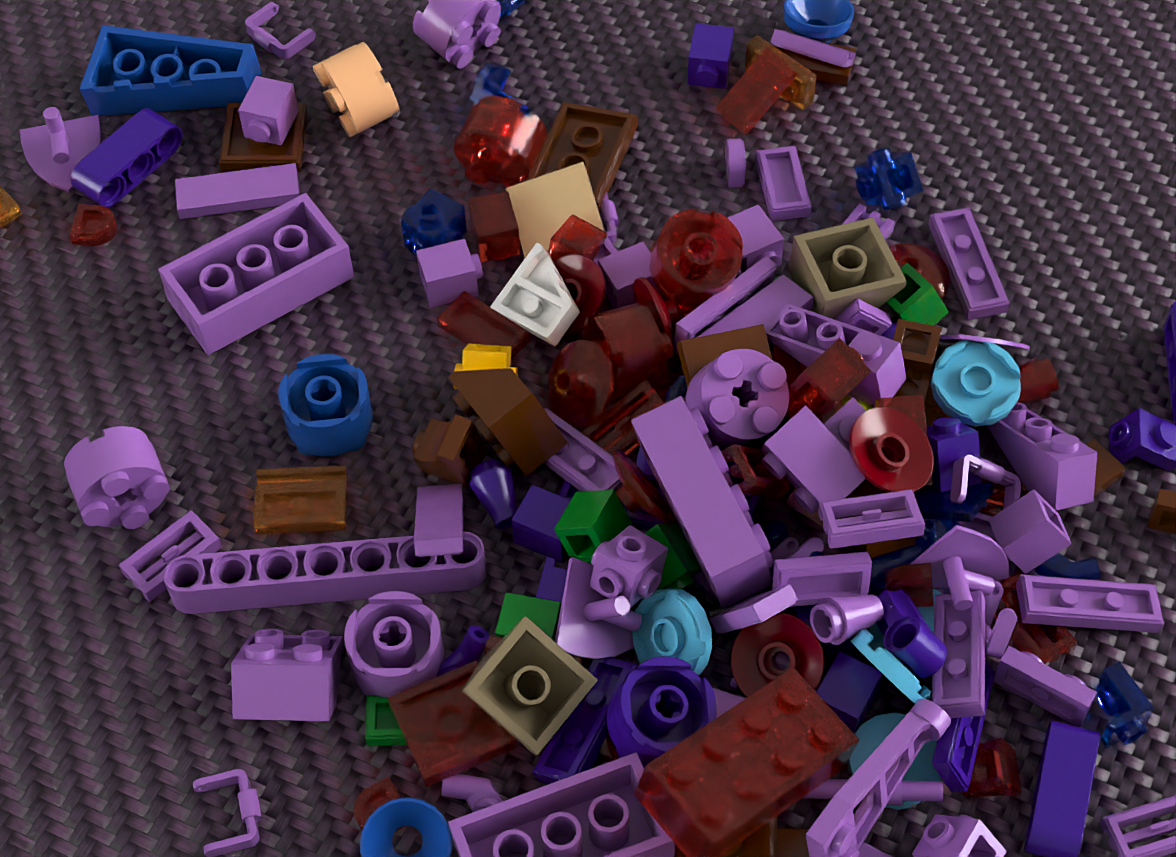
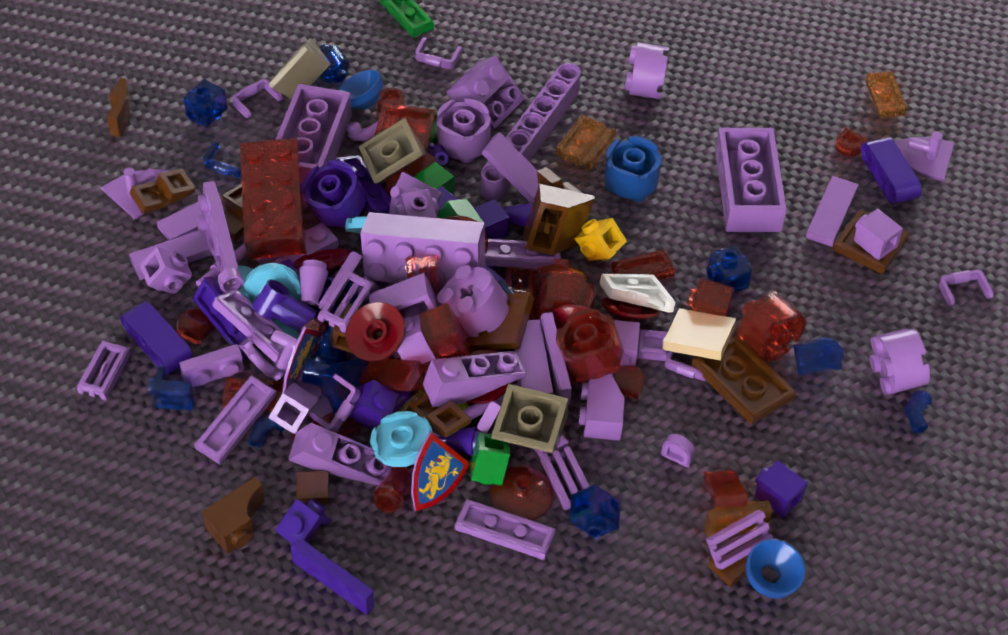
camera: 120 degrees right, 5 degrees down
(151, 580) = (597, 102): medium lavender tile -> none
(165, 72) = (949, 206): blue wedge -> none
(356, 88) = (868, 282): light nougat brick -> none
(448, 272) = (691, 264): medium lavender brick -> none
(576, 238) = (663, 323): clear red slope -> none
(754, 609) = (344, 241): medium lavender tile -> none
(783, 183) = (645, 472): medium lavender tile -> none

